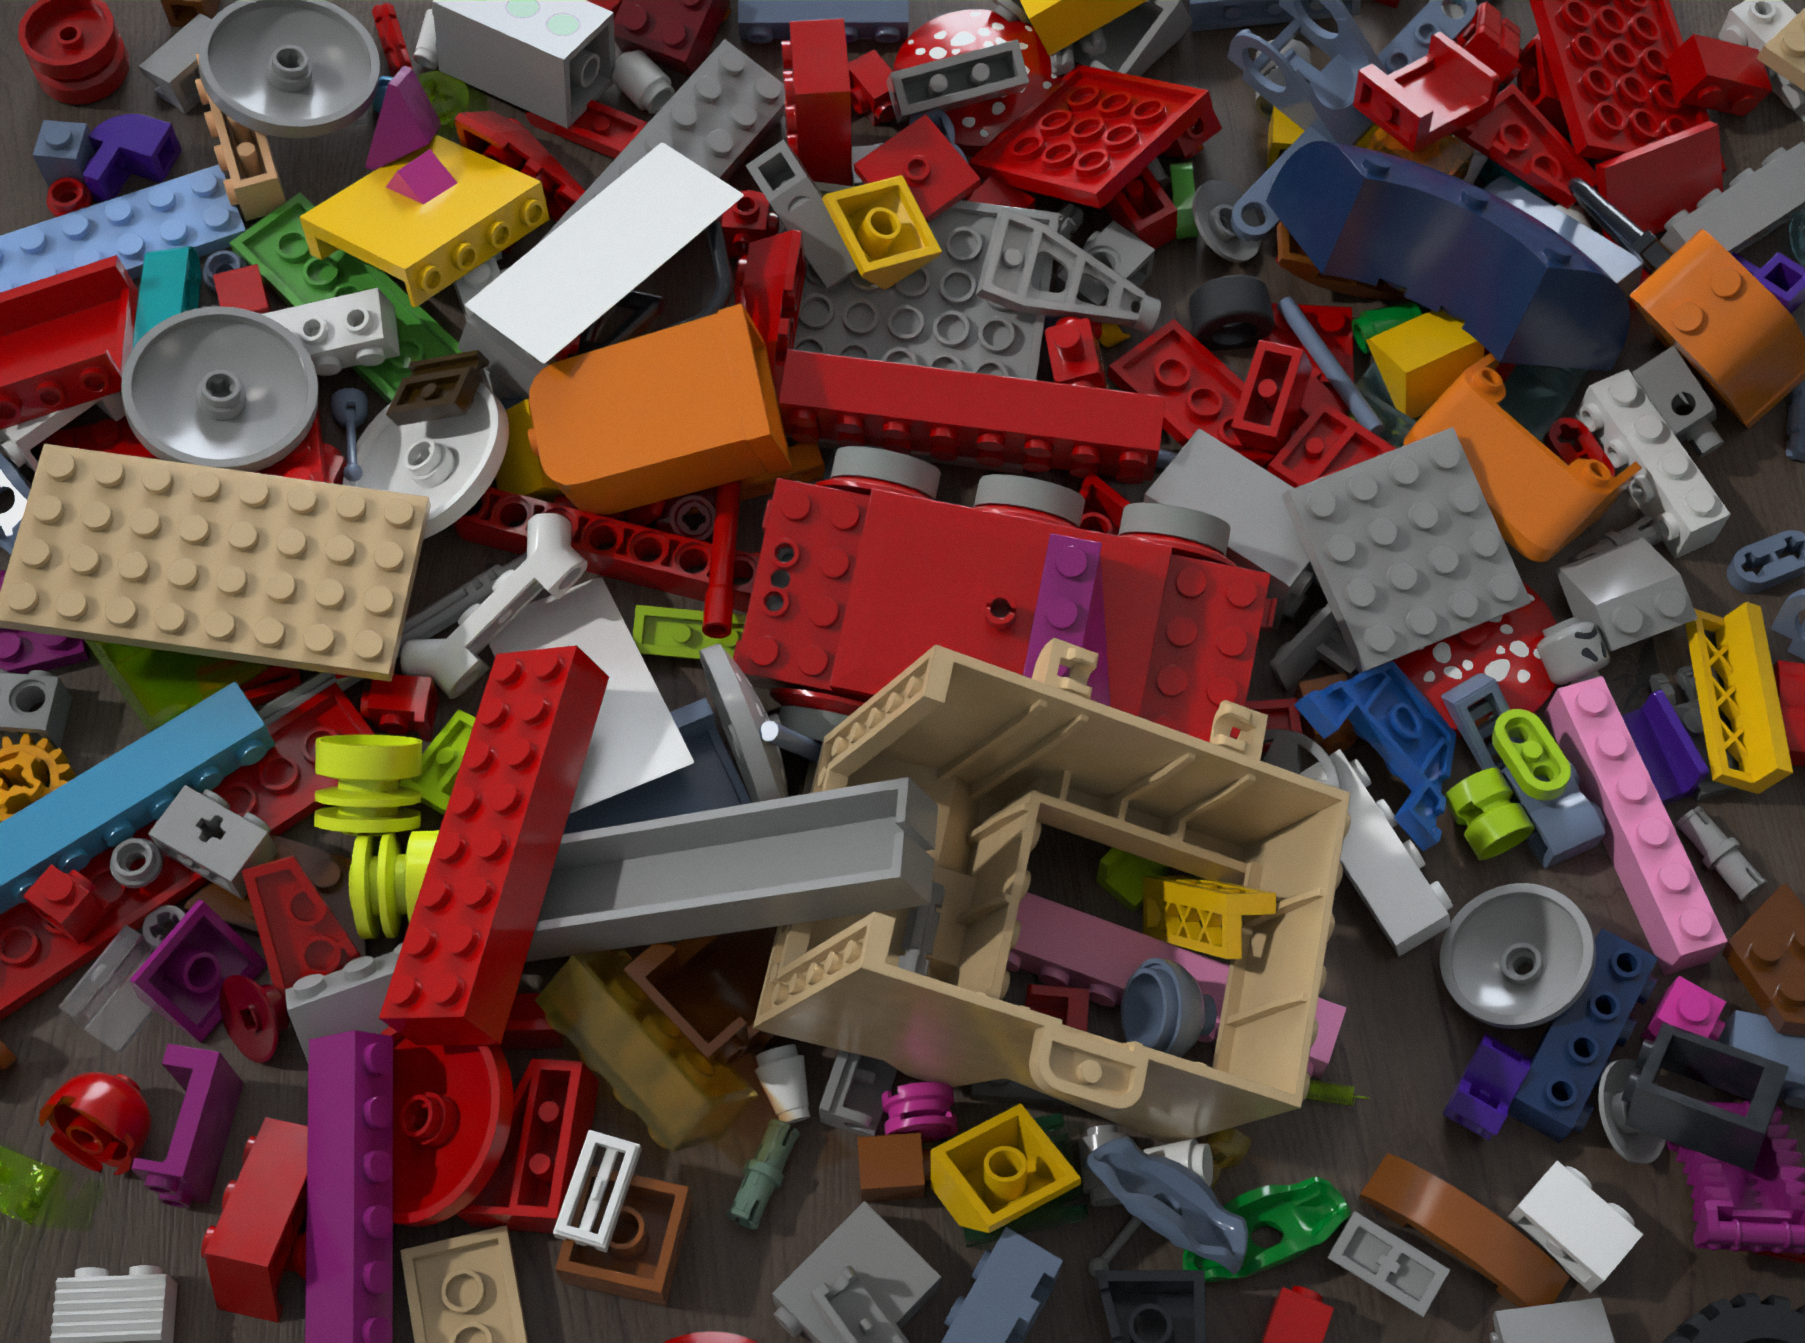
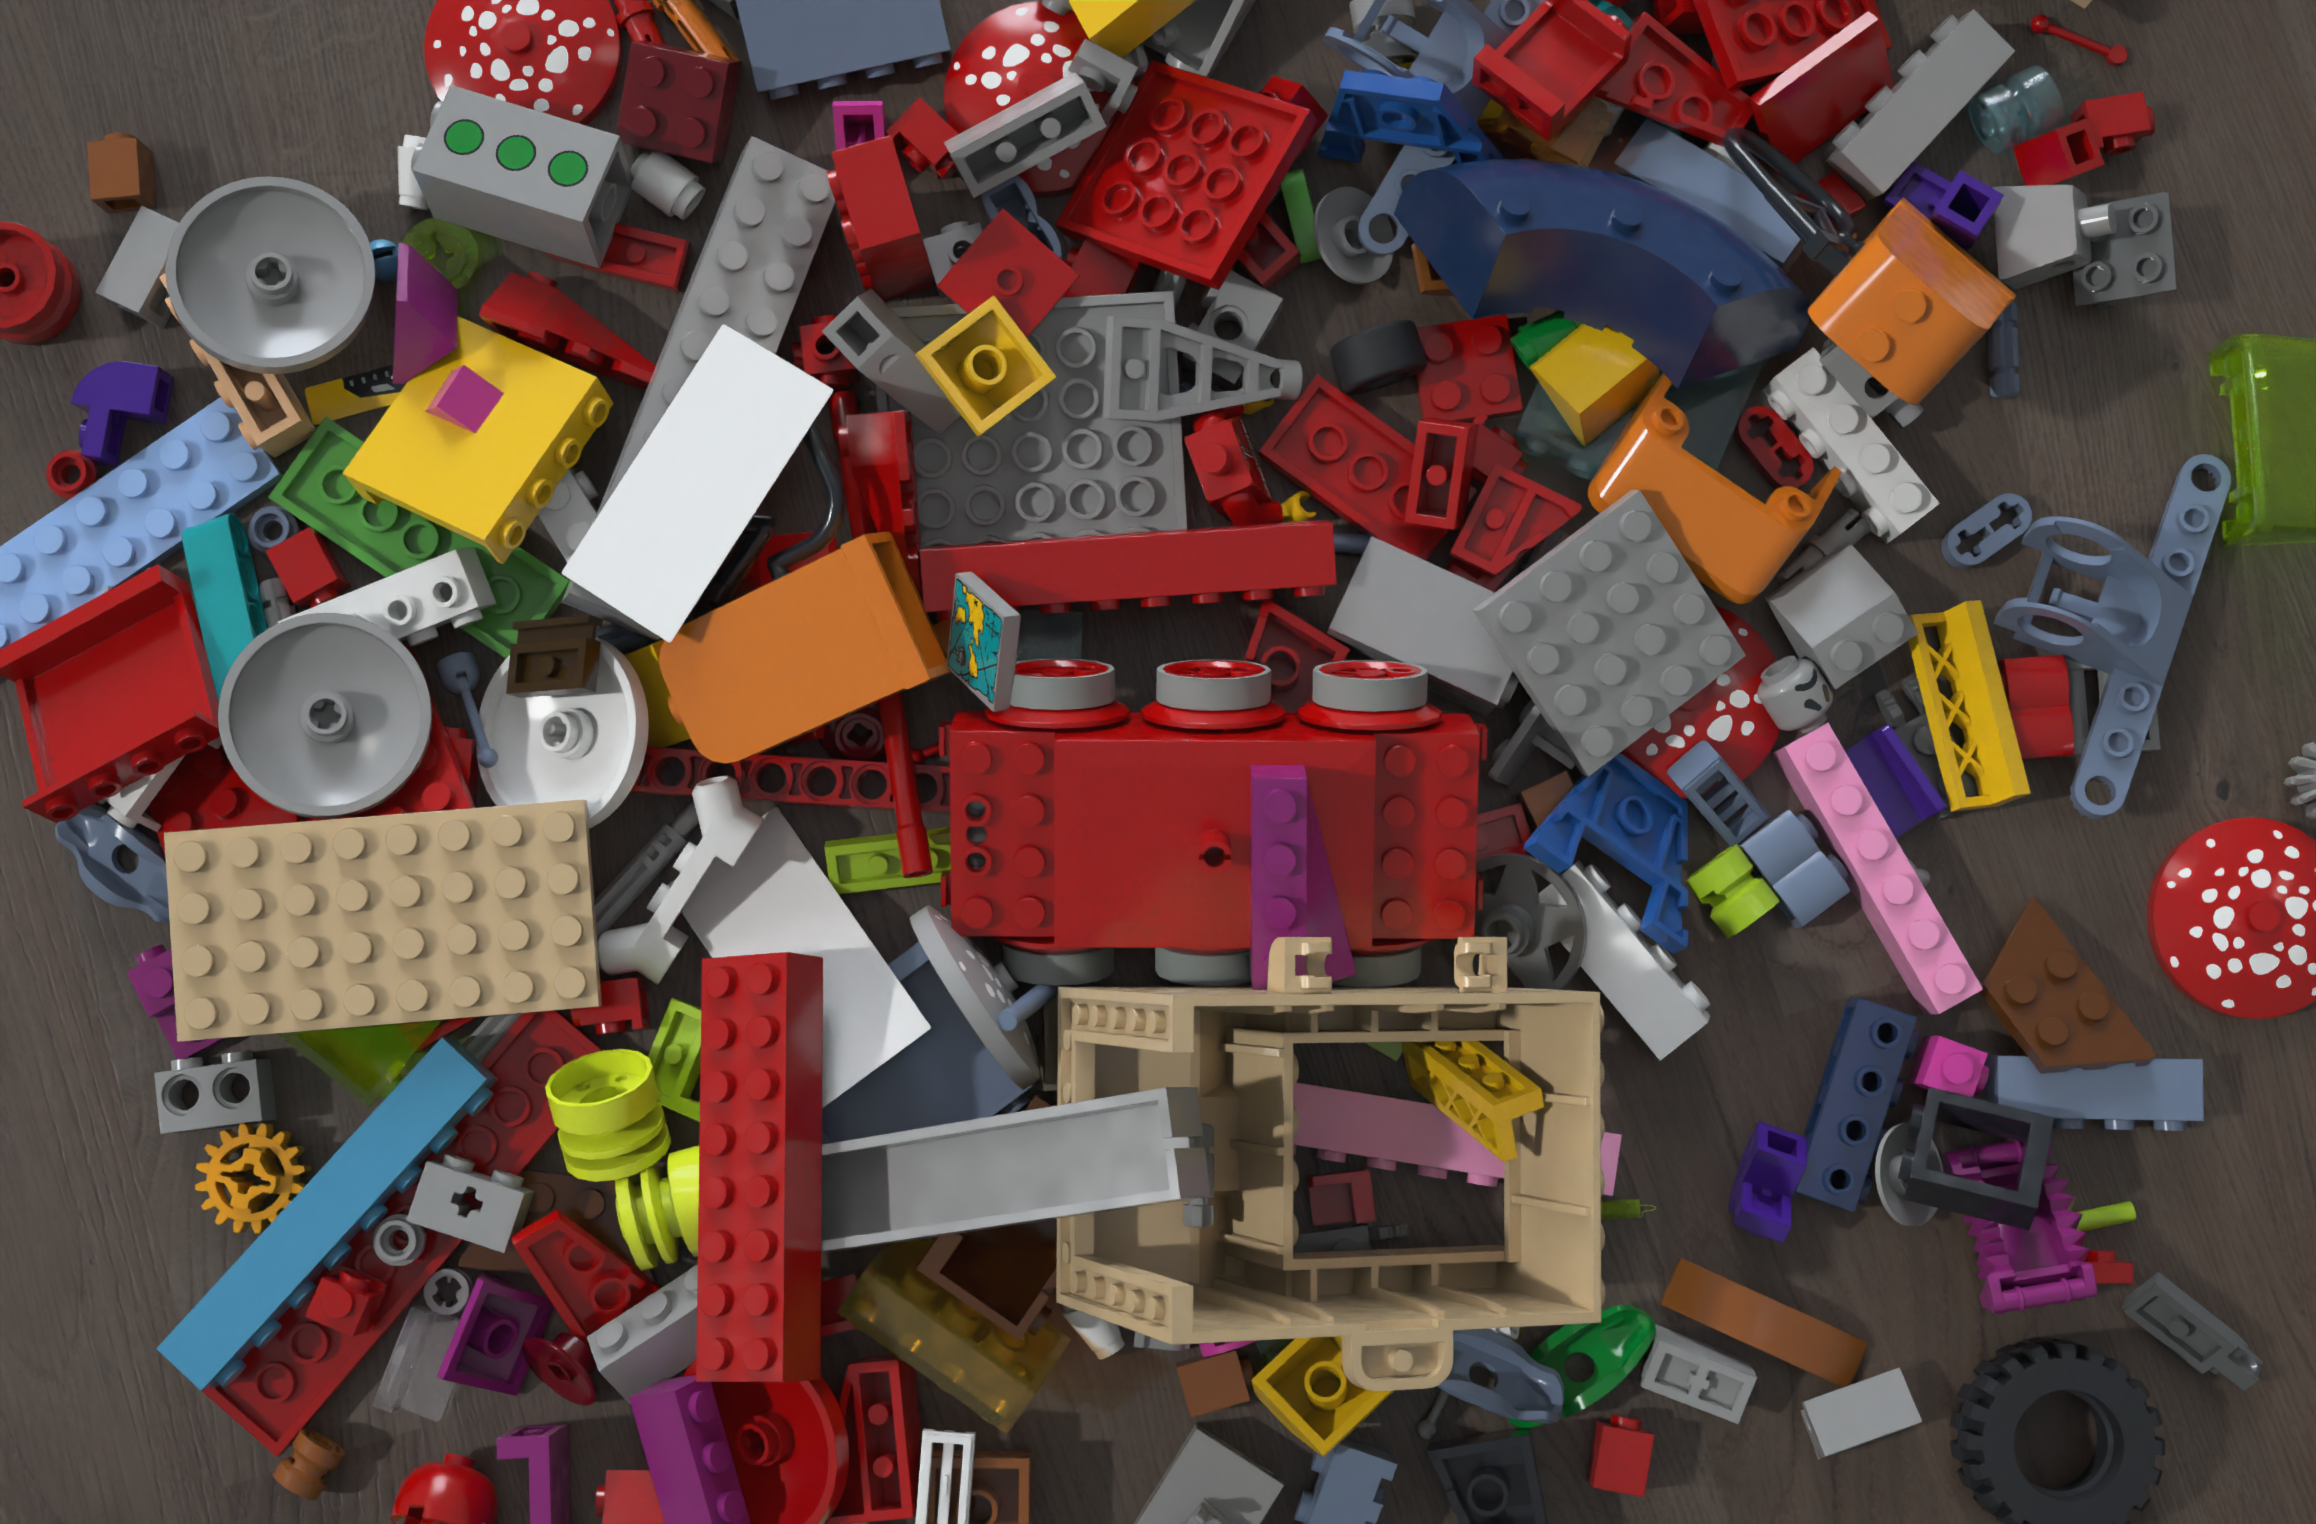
camera: 10 degrees left, 20 degrees up
(63, 150) = (48, 423): sand blue brick -> none
(320, 188) = (352, 395): none -> yellow sticker
(391, 37) = (367, 184): red axle -> none
(763, 1174) = (1092, 1411): sand green pin -> none
(826, 422) = (983, 641): none -> tile
(1040, 59) = (1106, 72): none -> light grey bracket
(1166, 1008) = (1449, 1191): sand blue piece -> none
(1280, 108) = (1403, 113): none -> blue wing
(1330, 366) = (1496, 409): sand blue bar -> none
(1503, 933) = (1747, 1037): light grey dish -> none
(1532, 758) = (1769, 829): lime plate -> none
(1575, 1225) = (1868, 1301): white brick -> none
(1721, 853) = (1967, 879): light grey pin -> none

